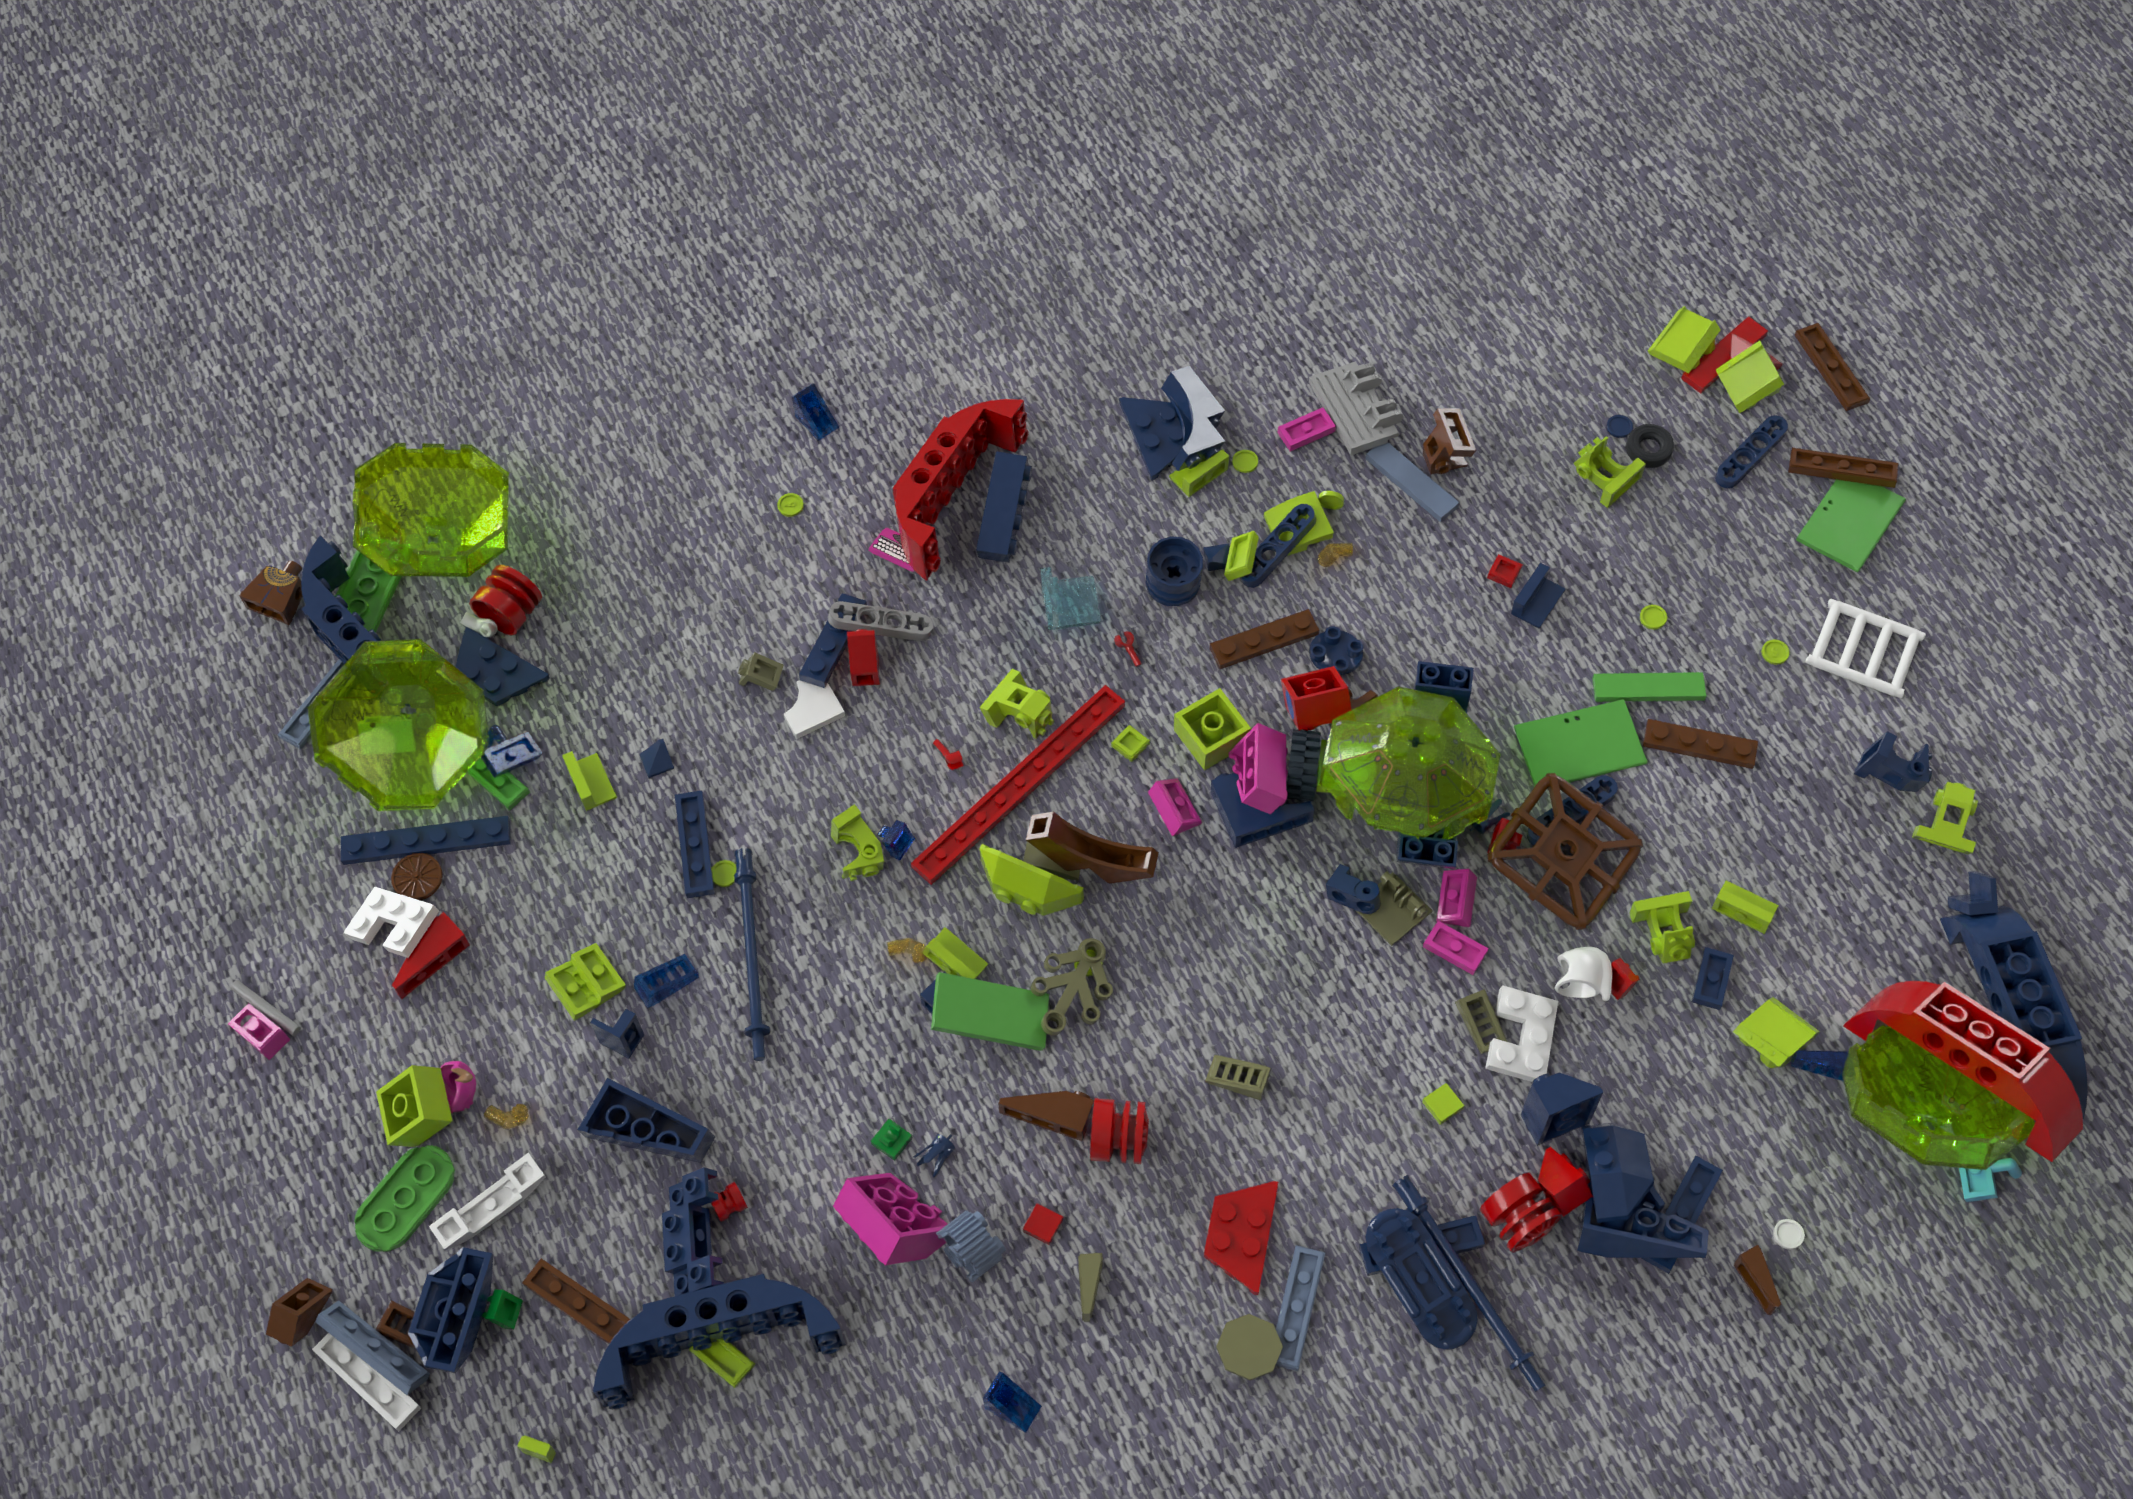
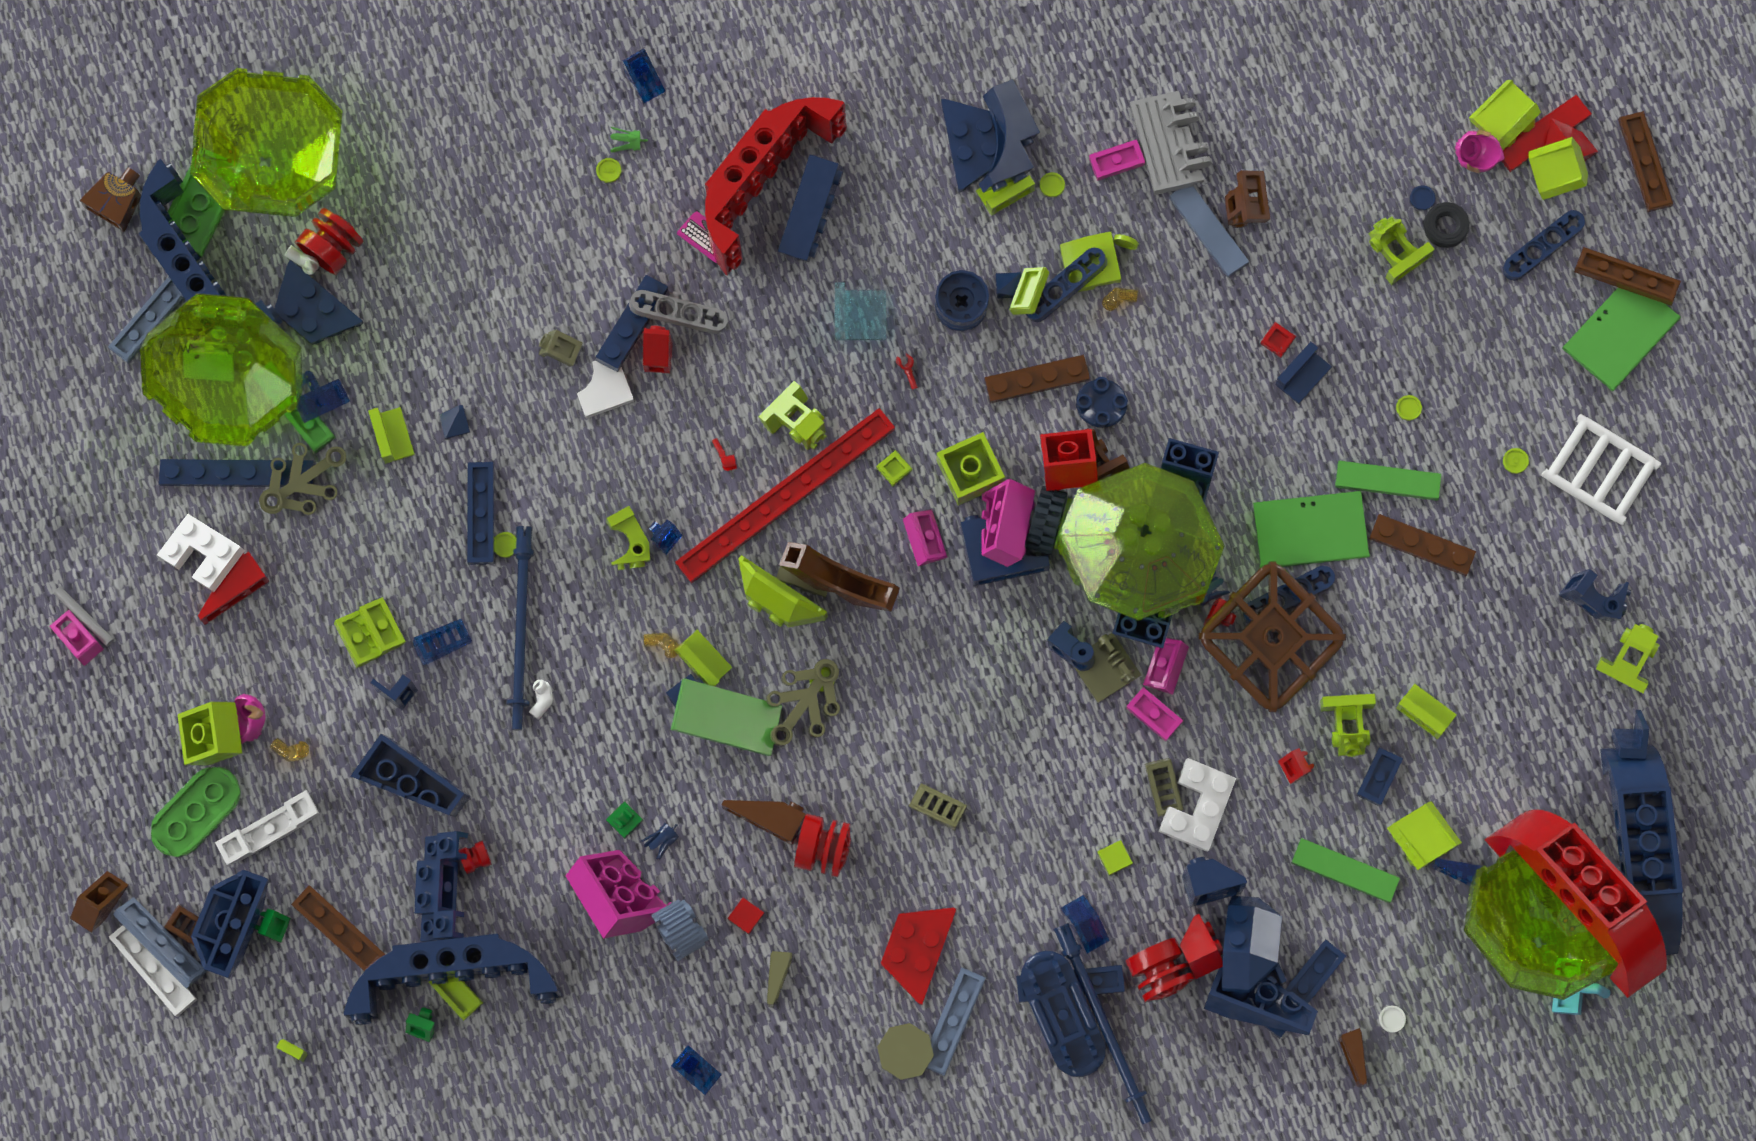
camera: 10 degrees right, 15 degrees up
(417, 876) = (226, 508): reddish brown wheel -> none
(493, 837) = (298, 482): none -> olive plant
(685, 1398) = (420, 1025): none -> green tile
(785, 1022) = (544, 698): none -> white arm
(807, 472) = (632, 137): none -> bright green piece
(1427, 1177) = (1085, 924): none -> clear blue slope
(1588, 973) = (1266, 757): white piece -> none
(1667, 374) = (1479, 151): none -> dark pink hair
(1699, 1081) = (1345, 870): none -> bright green tile

